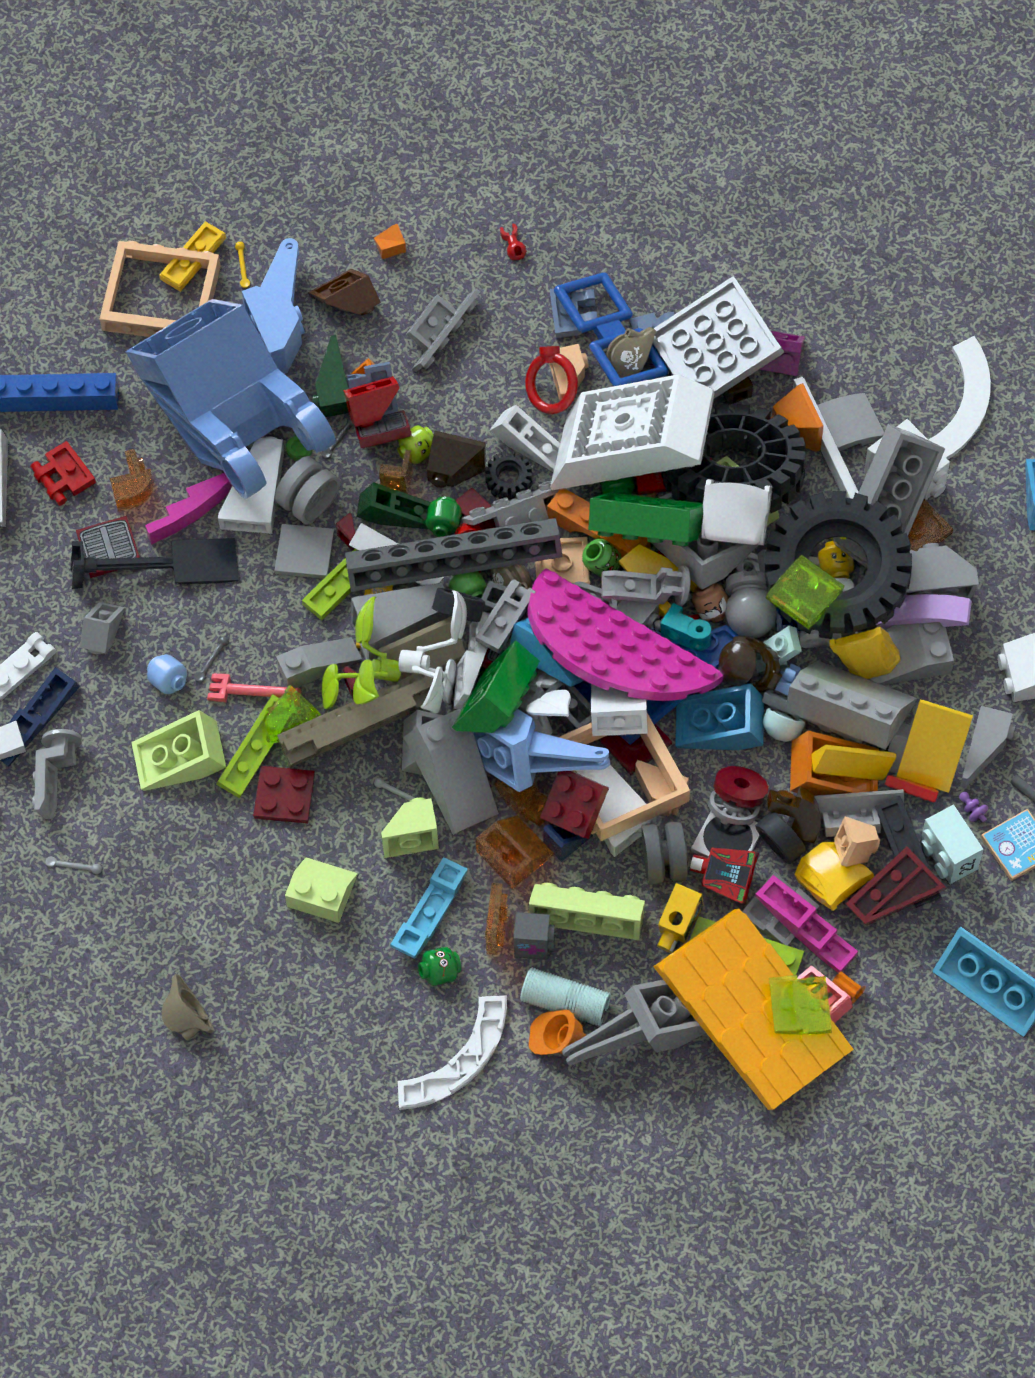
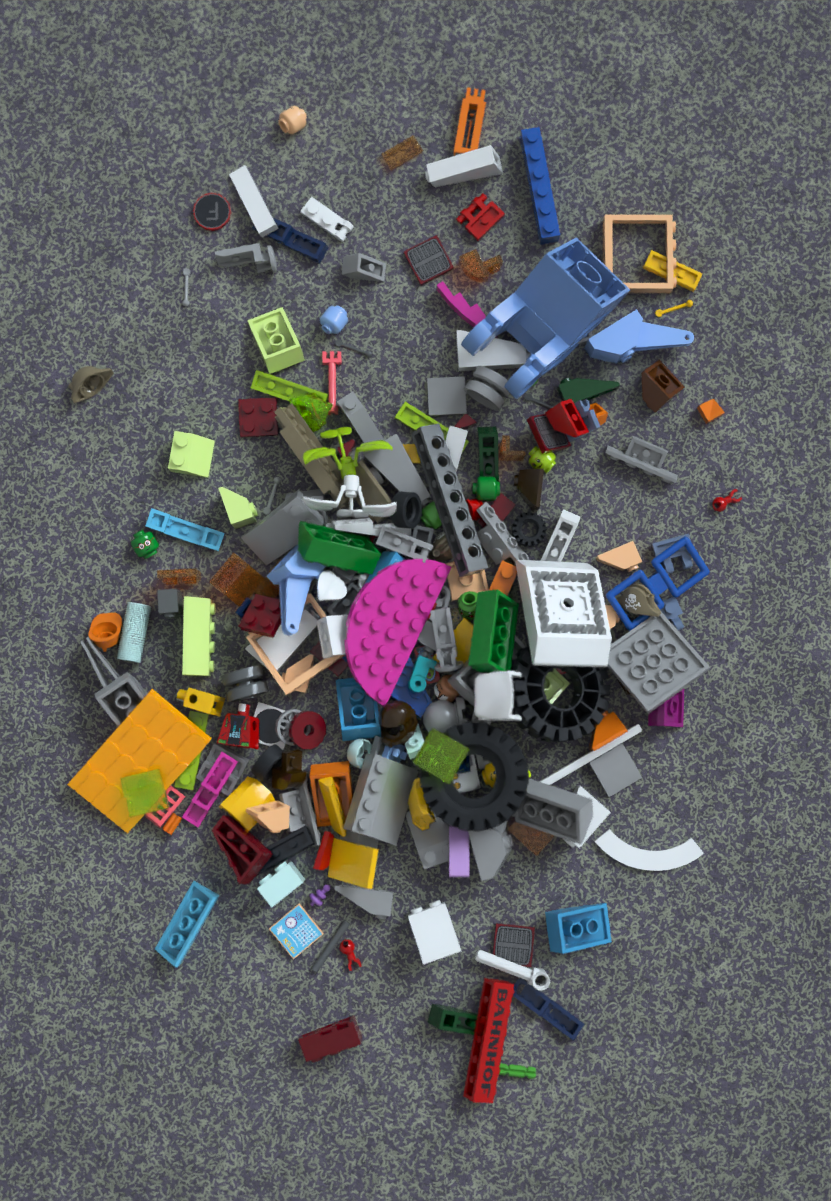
camera: 80 degrees right, 20 degrees up
(191, 559) = (426, 320): black piece -> none
(465, 1064) = (80, 573): white tile -> none
(551, 354) = (625, 542): red piece -> none

